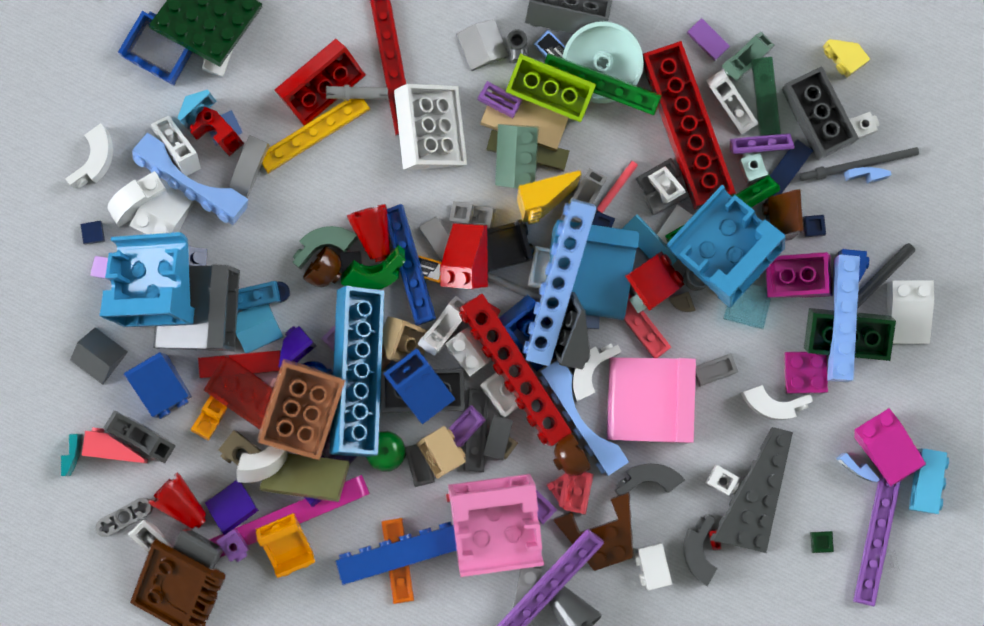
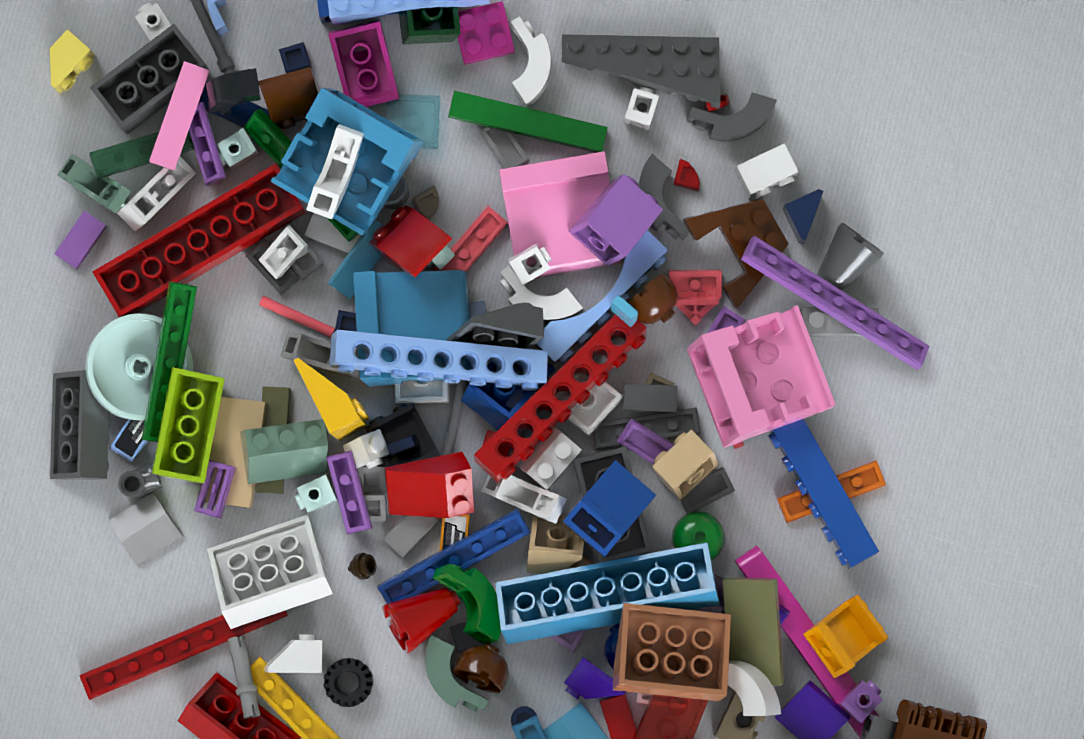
camera: 95 degrees left, 0 degrees up
(330, 157) = (331, 682): none -> black tyre
(362, 134) = (298, 657): none -> white slope
(419, 196) = (362, 566): none -> dark brown plate
(475, 197) = (349, 492): none -> medium lavender slope
(483, 180) = (326, 494): none -> light aqua brick
(502, 244) = (403, 444): none -> dark blue tile
(504, 216) = (368, 449): none -> white brick
(567, 431) = (624, 311): none -> medium azure tile
(614, 362) = (525, 272): none -> white brick
(615, 586) = (801, 214): none -> dark blue slope
(638, 440) = (616, 220): none -> medium lavender slope
(662, 504) = (686, 176): none -> red tile
(717, 234) = (336, 172): none -> white arch
(729, 390) = (527, 122): none -> green tile
(787, 128) = (179, 115): none -> bright pink tile
(797, 170) = (232, 90): none -> black arch

